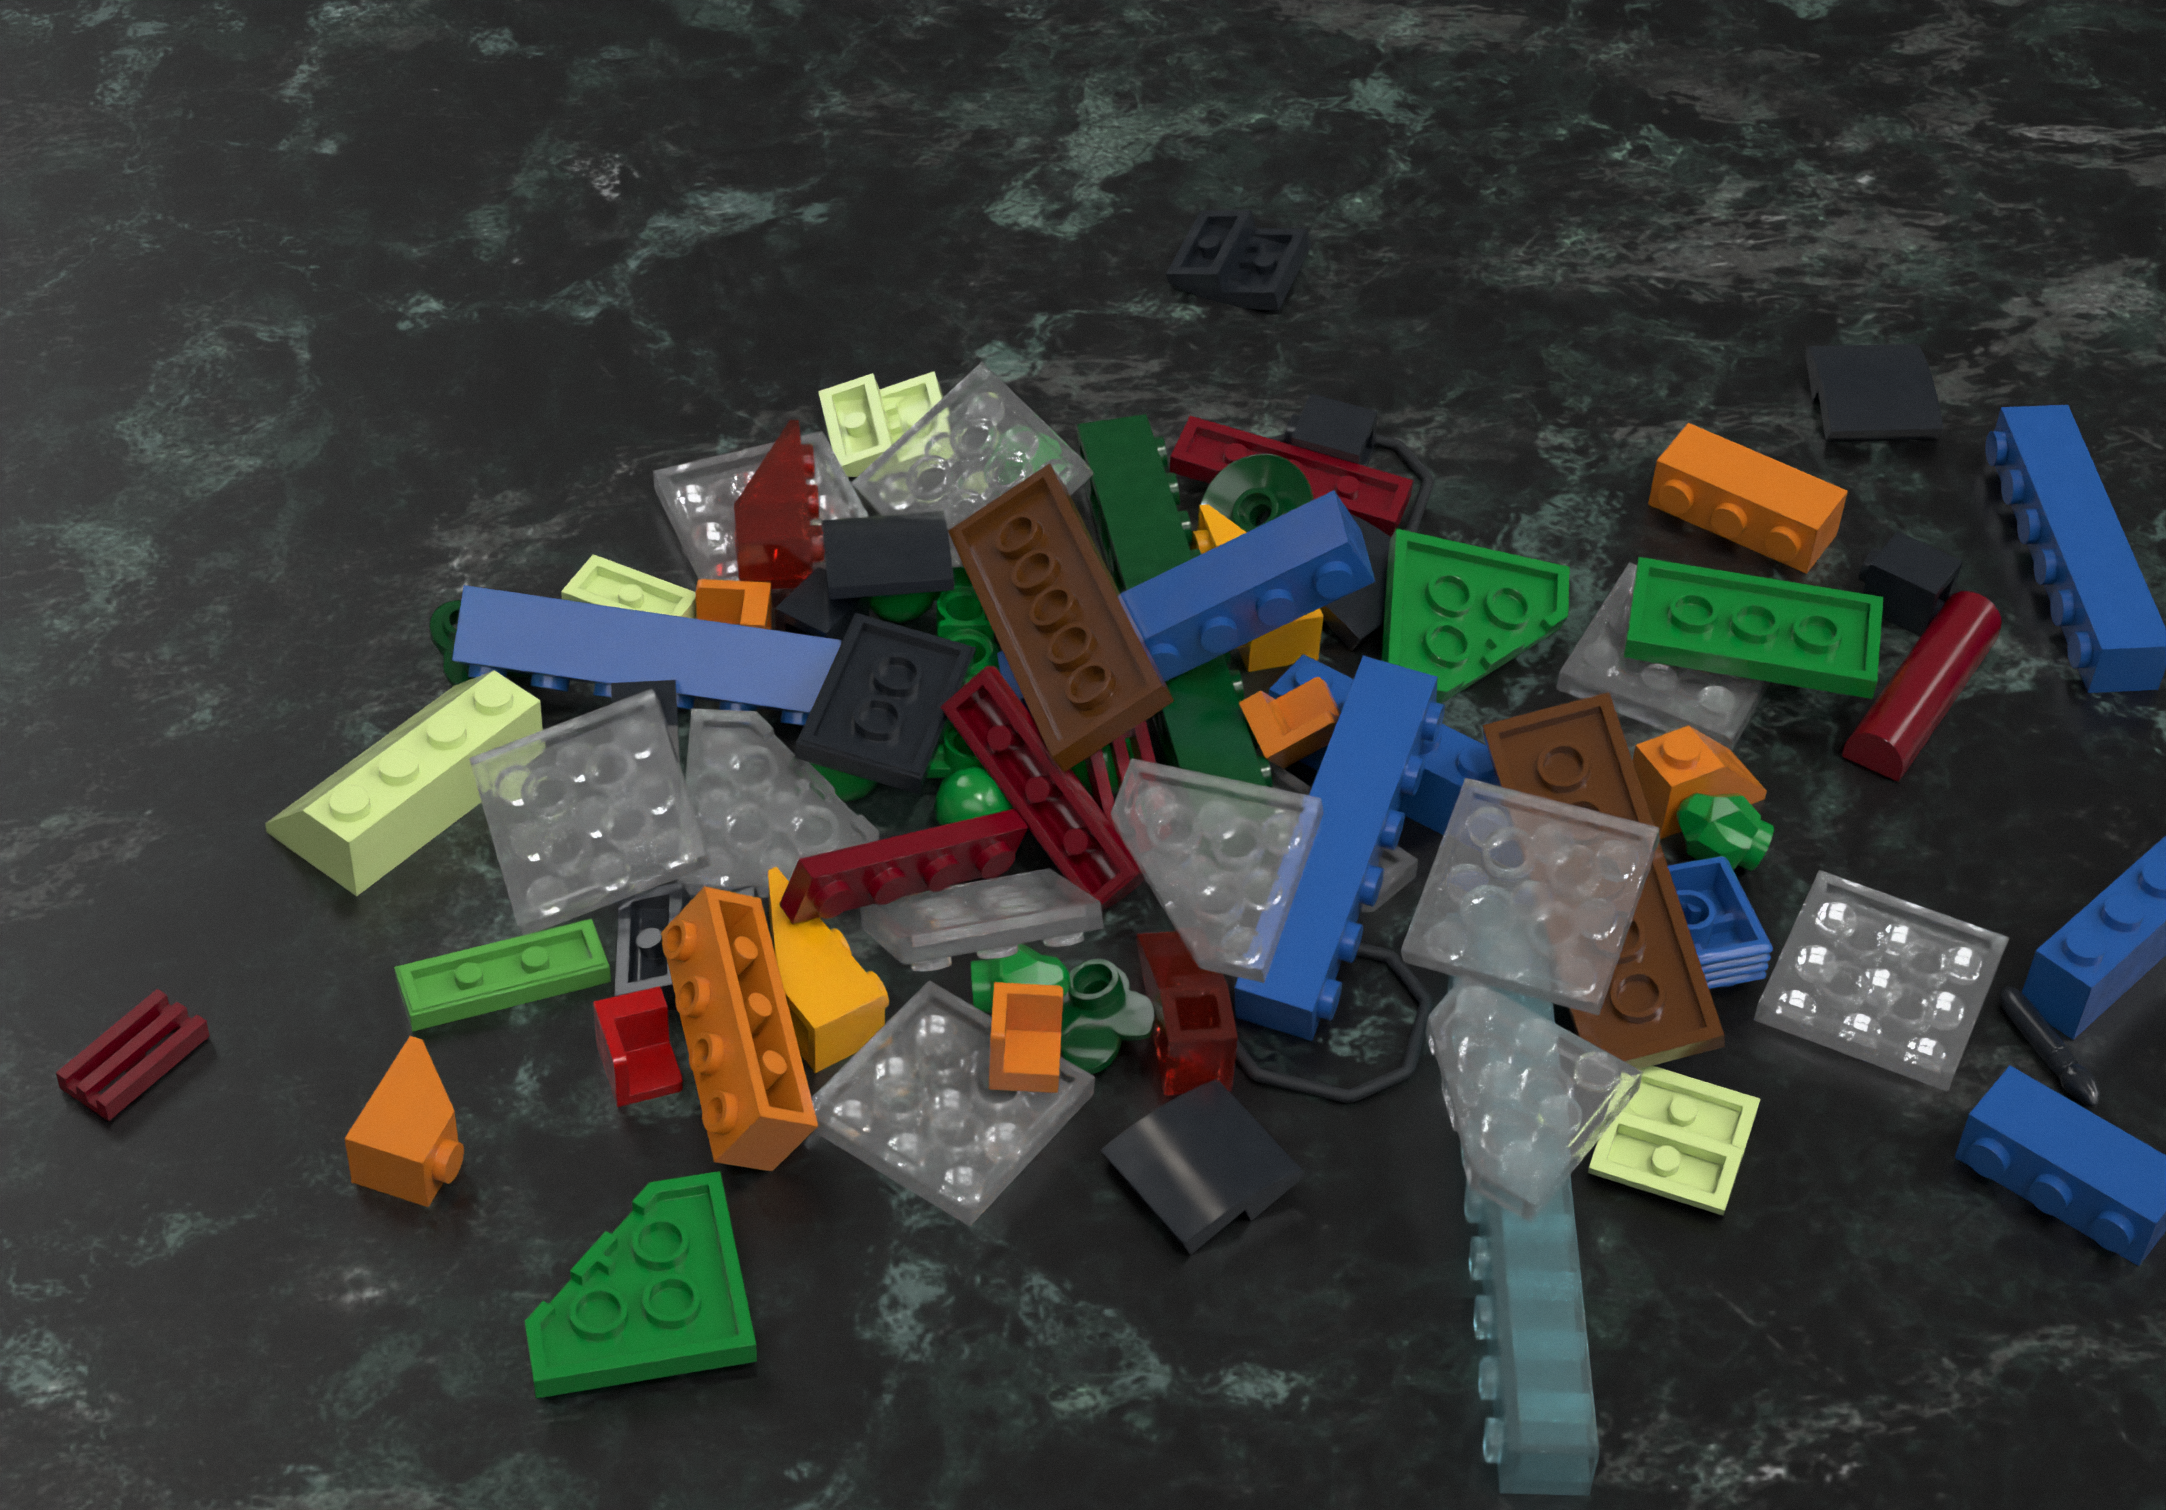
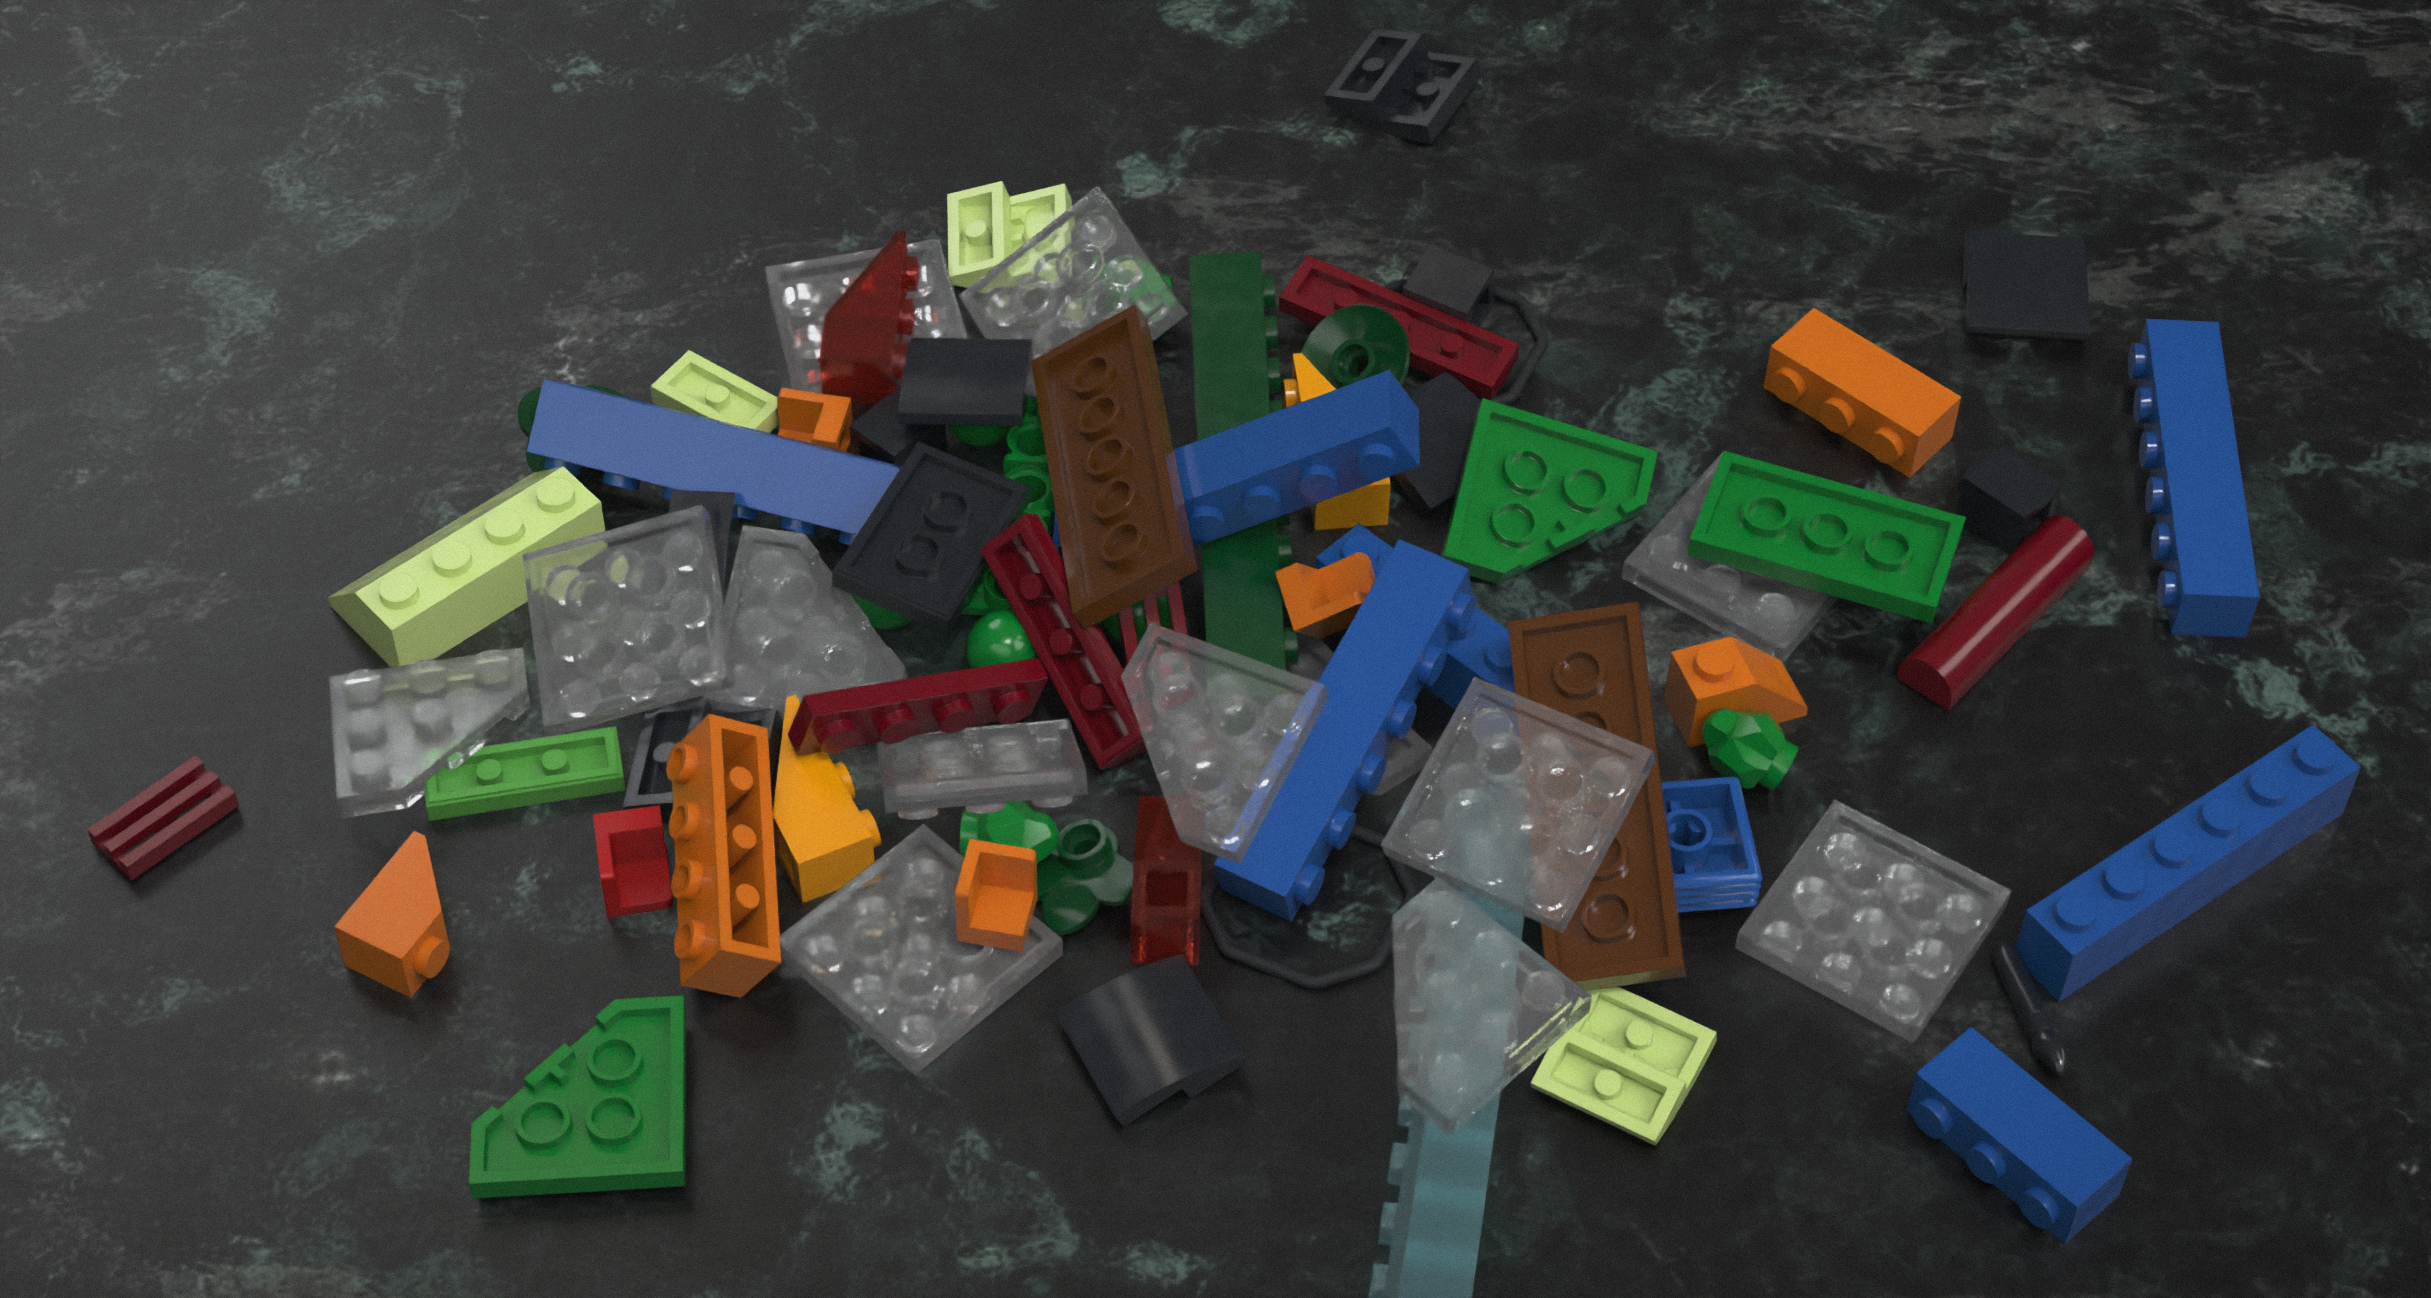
camera: 10 degrees right, 5 degrees up
(382, 933) = (413, 720): none -> clear plate

